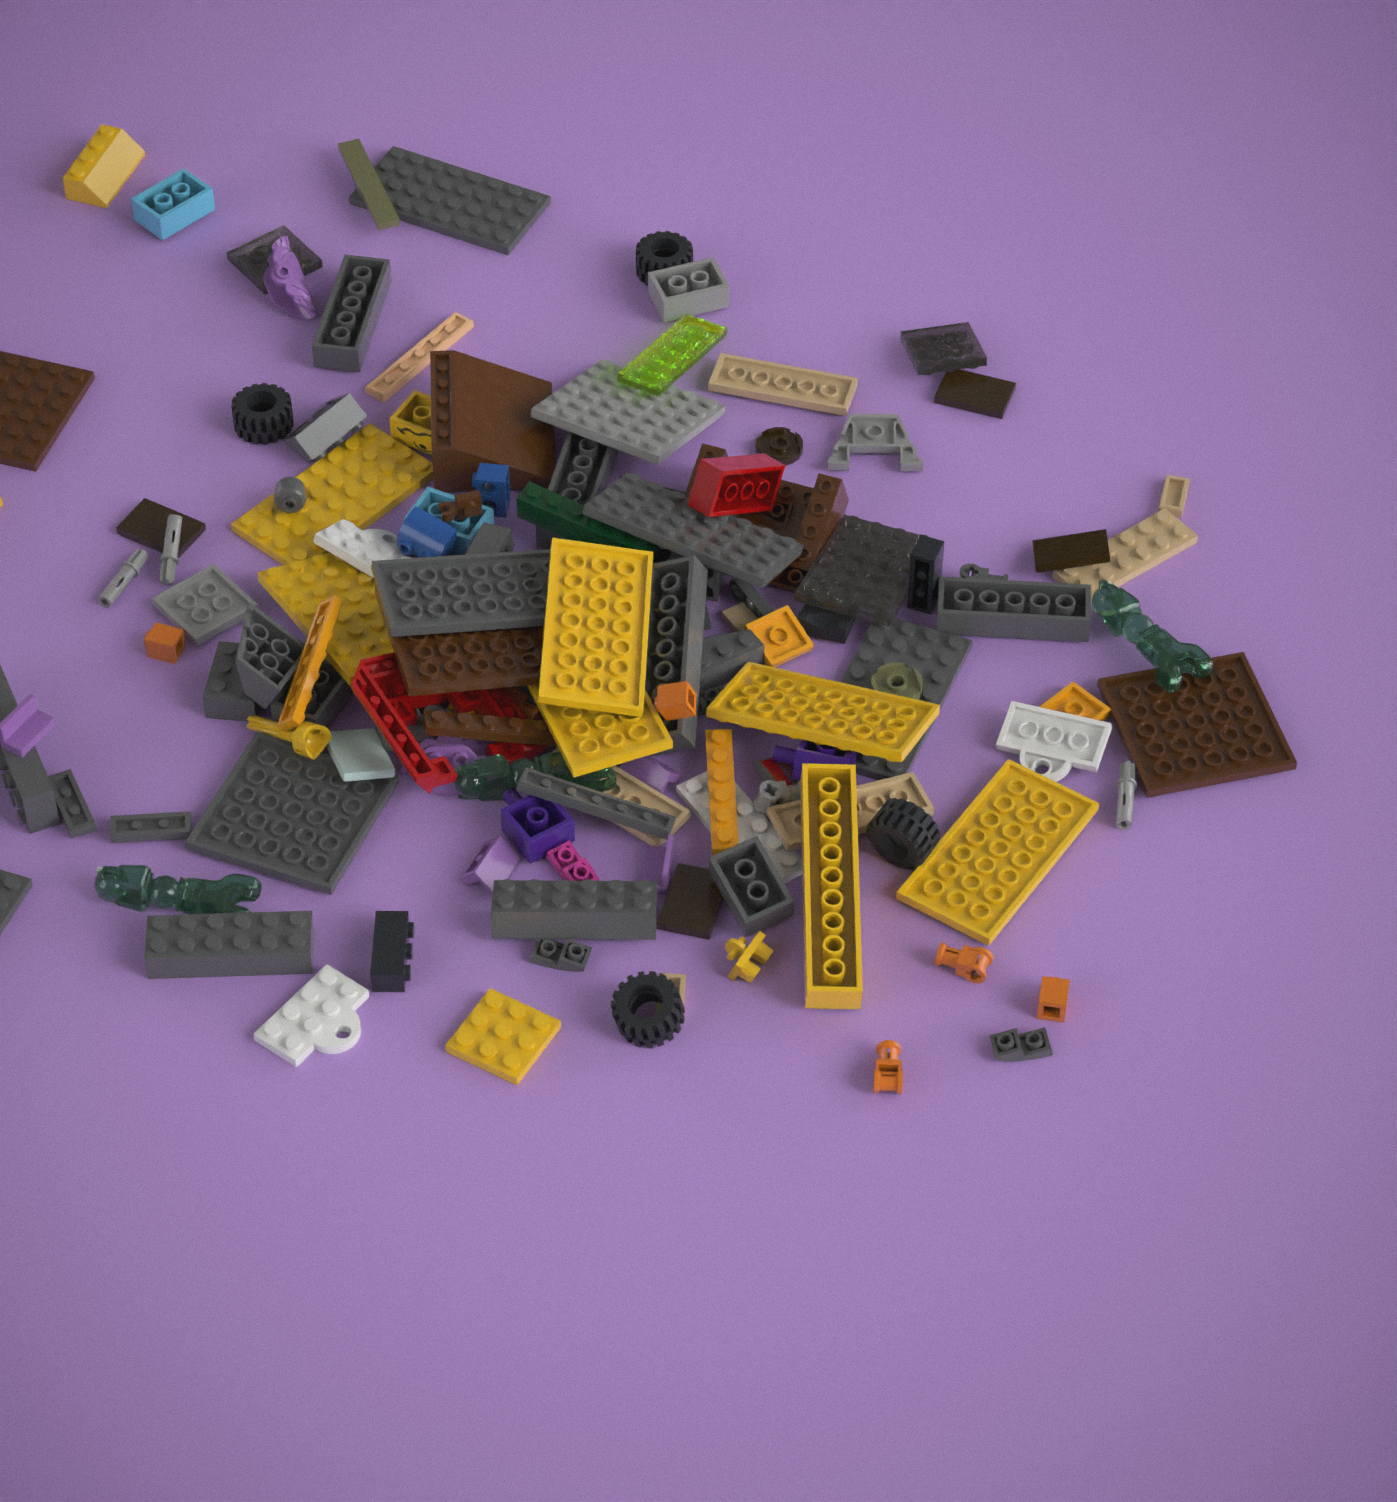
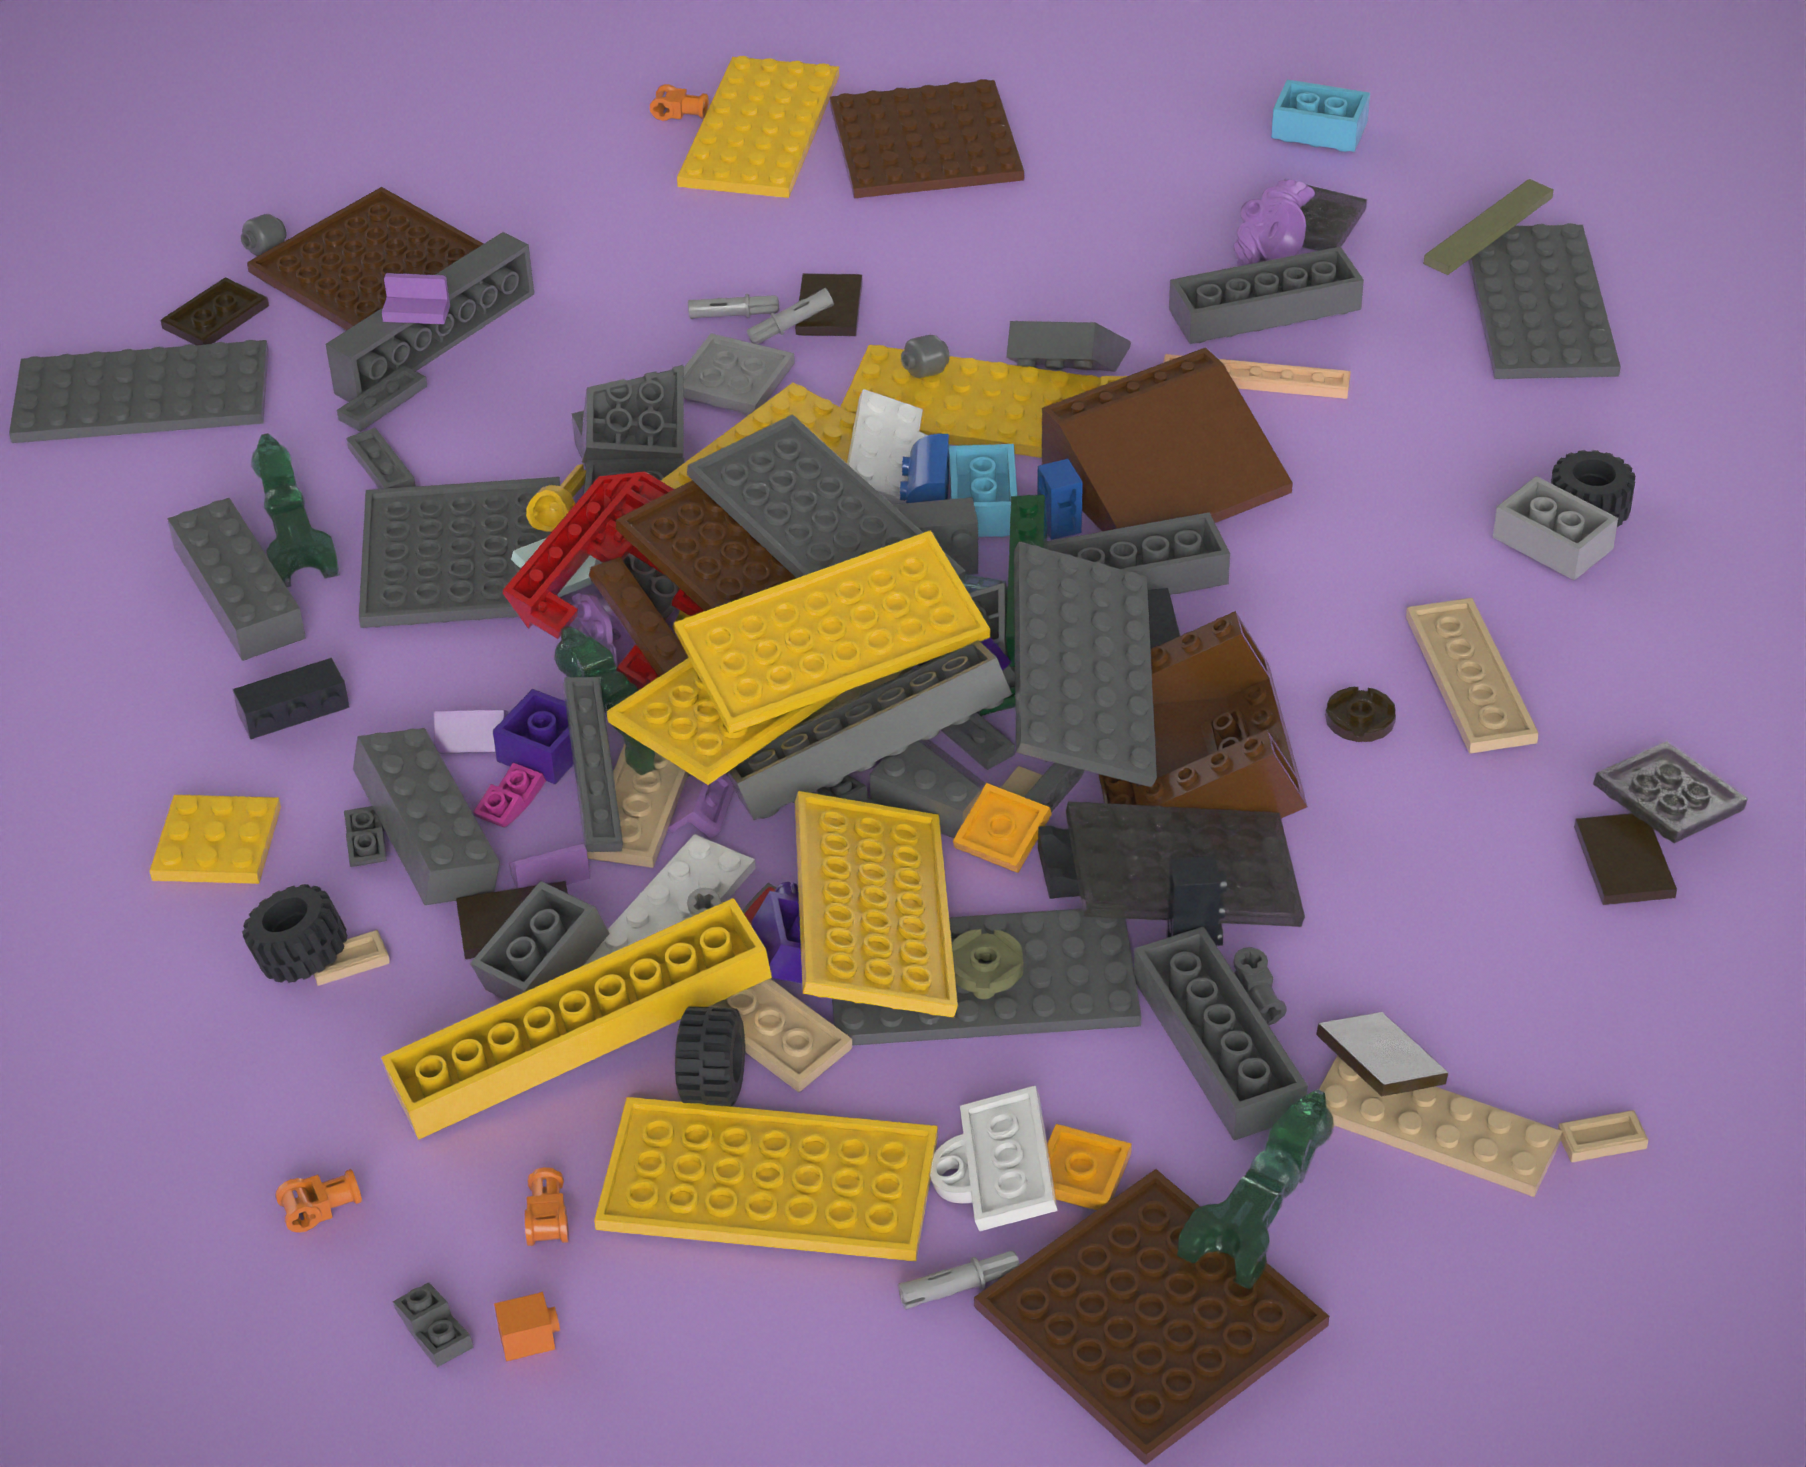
camera: 65 degrees right, 5 degrees down
(102, 167) = (1340, 53): yellow slope -> none
(164, 643) = (651, 359): orange brick -> none
(262, 413) = (1050, 293): black tyre -> none
(309, 664) = (661, 451): light orange plate -> none
(315, 1018) = (172, 685): white plate -> none
(464, 506) = (991, 474): reddish brown plate -> none
(626, 416) = (1283, 555): light grey plate -> none
(672, 355) = (1421, 555): clear neon green plate -> none
(676, 701) = (767, 749): orange brick -> none
(721, 790) = (695, 871): light orange plate -> none
(736, 485) = (1183, 664): red brick -> none
(744, 967) = (440, 991): yellow hips -> none
(874, 435) = (1447, 784): light grey wing -> none

